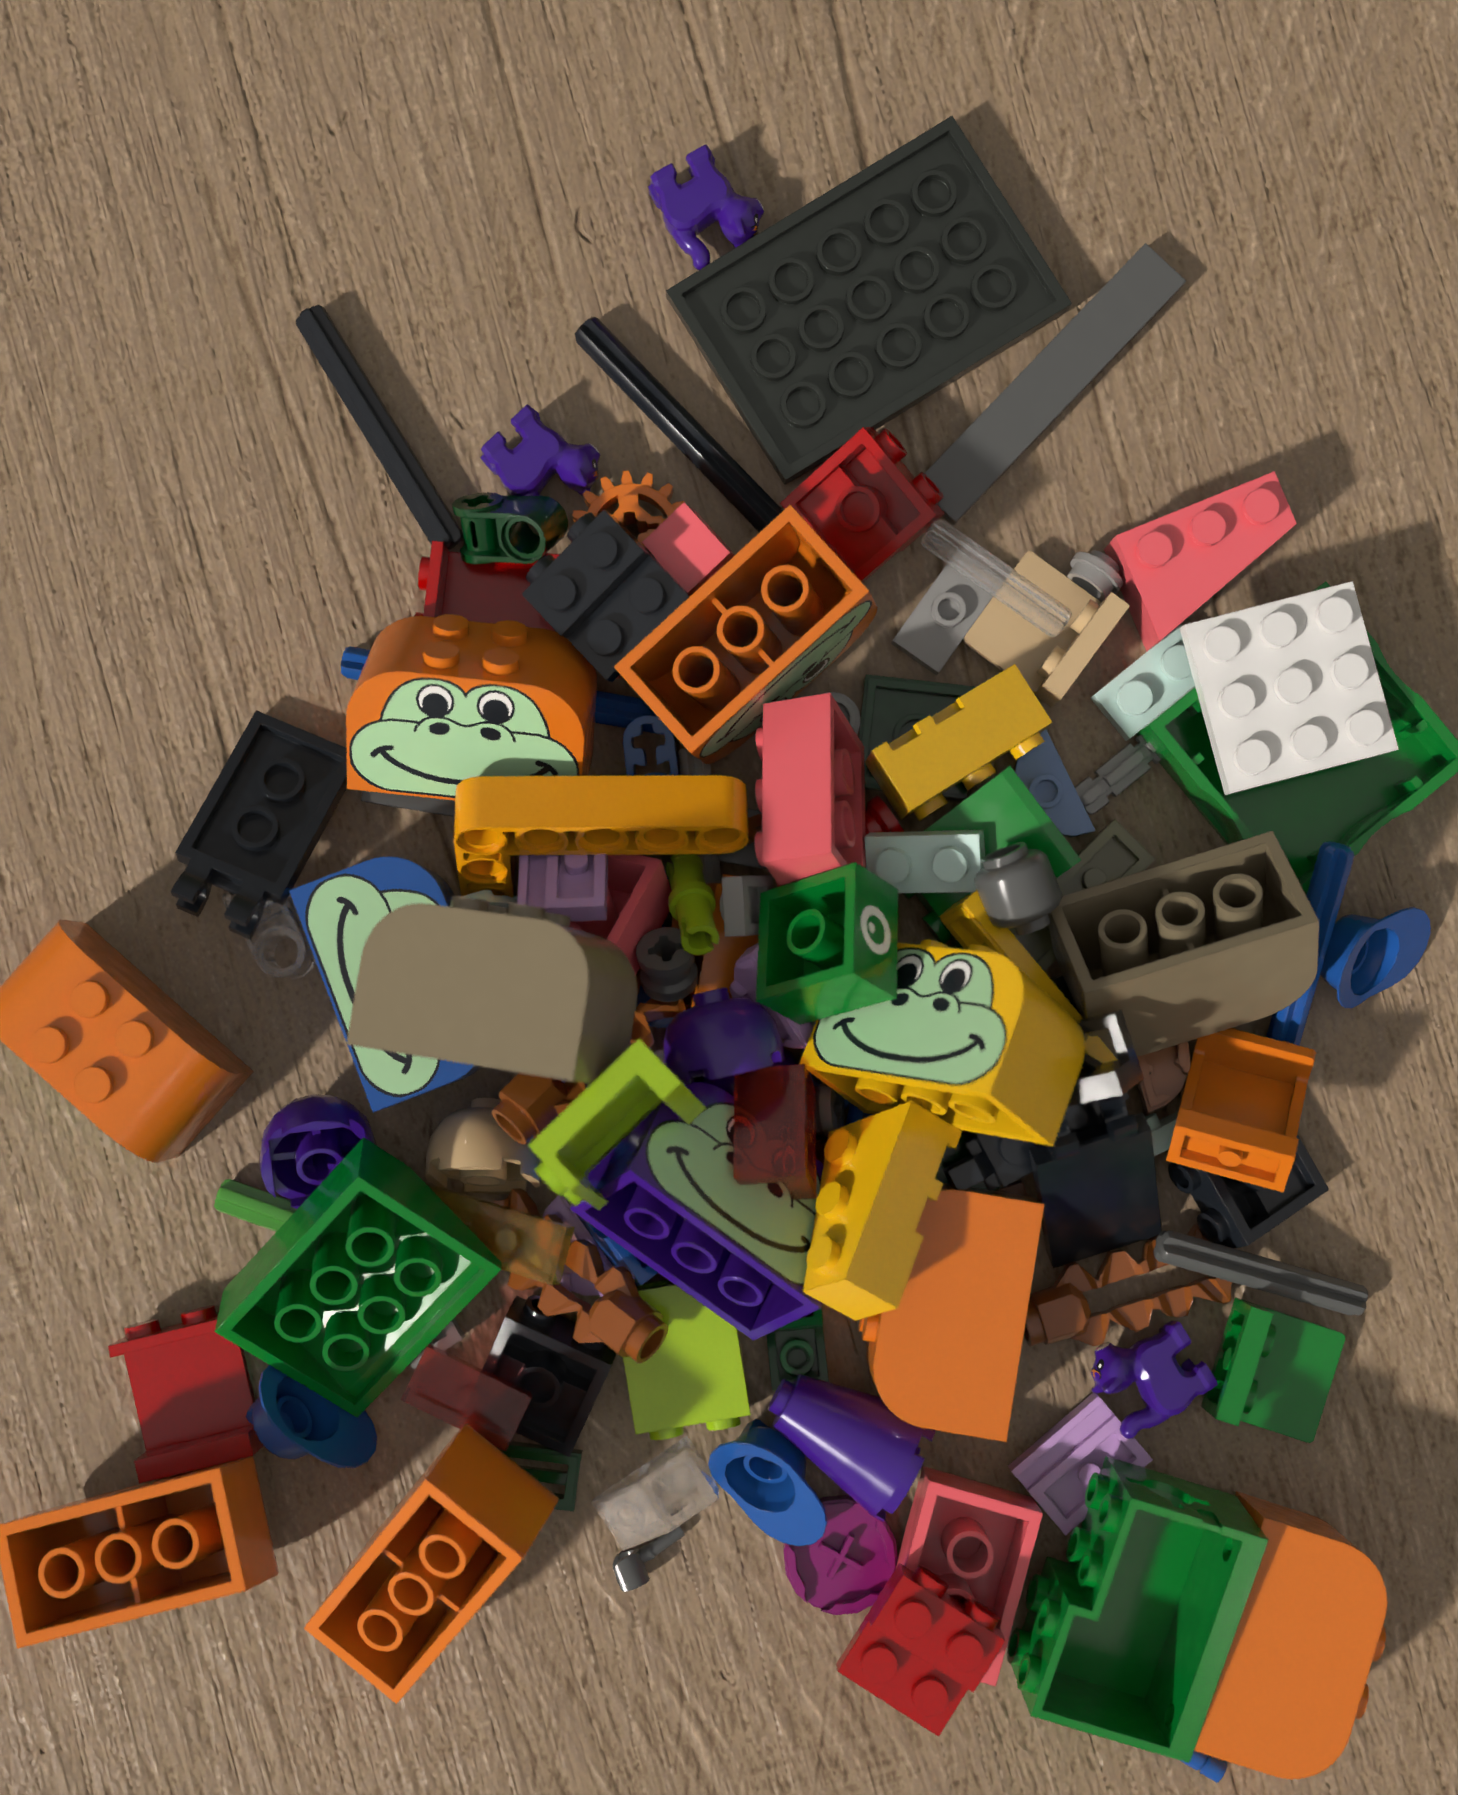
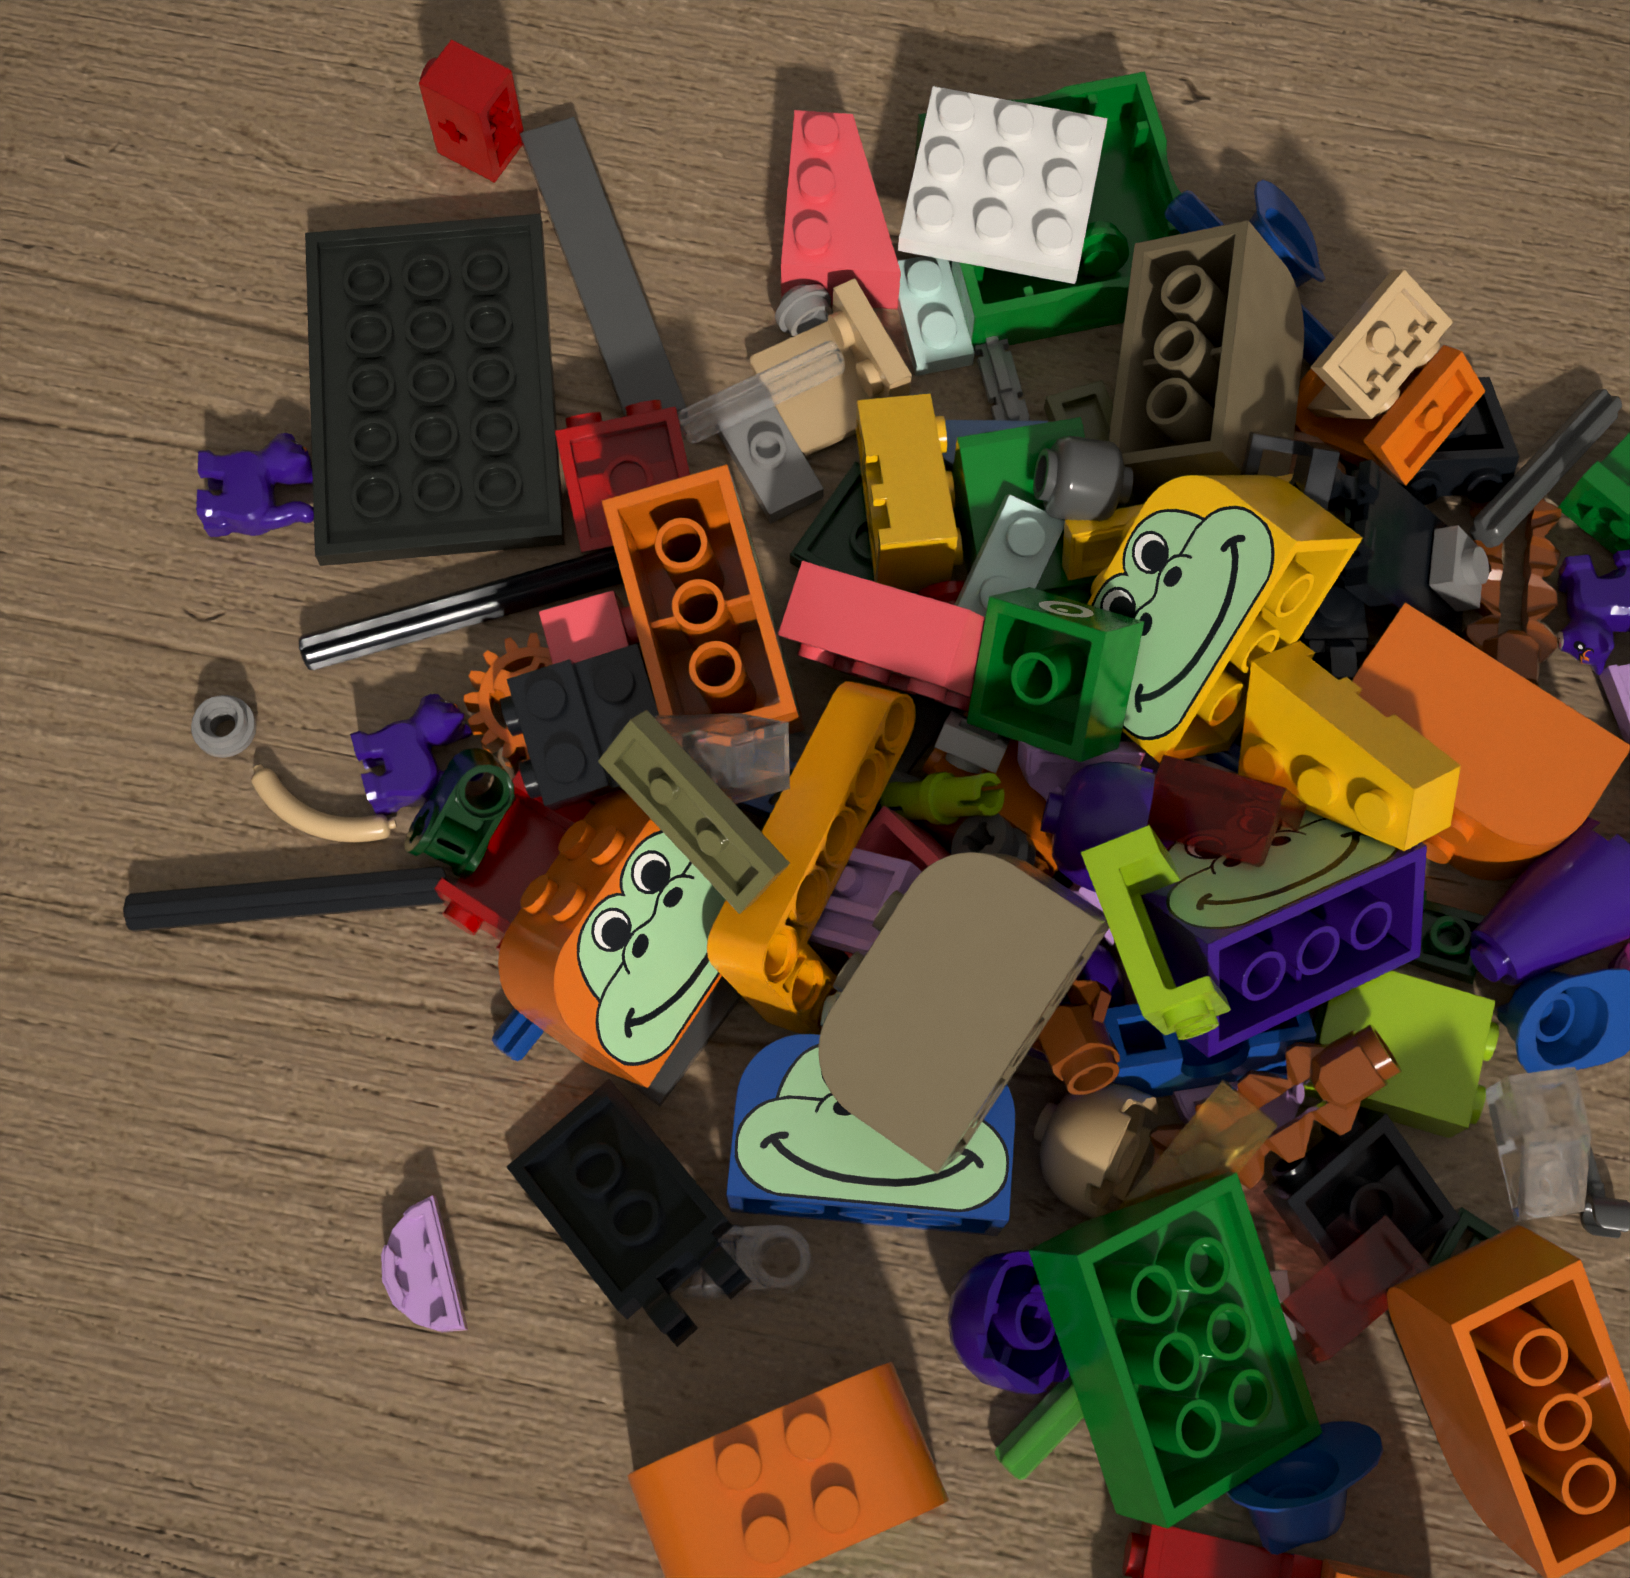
camera: 60 degrees left, 15 degrees down
(148, 689) = (421, 1271): none -> lavender plate
(452, 412) = (313, 821): none -> tan piece
(488, 283) = (215, 711): none -> light grey plate
(547, 717) = (693, 811): none -> olive plate
(616, 708) = (736, 750): none -> clear slope
(1119, 1235) = (1458, 568): none -> light grey plate
(1134, 191) = (472, 110): none -> red brick
(1267, 1087) = (1378, 350): none -> tan bracket
(1281, 802) = (1103, 250): none -> green plate

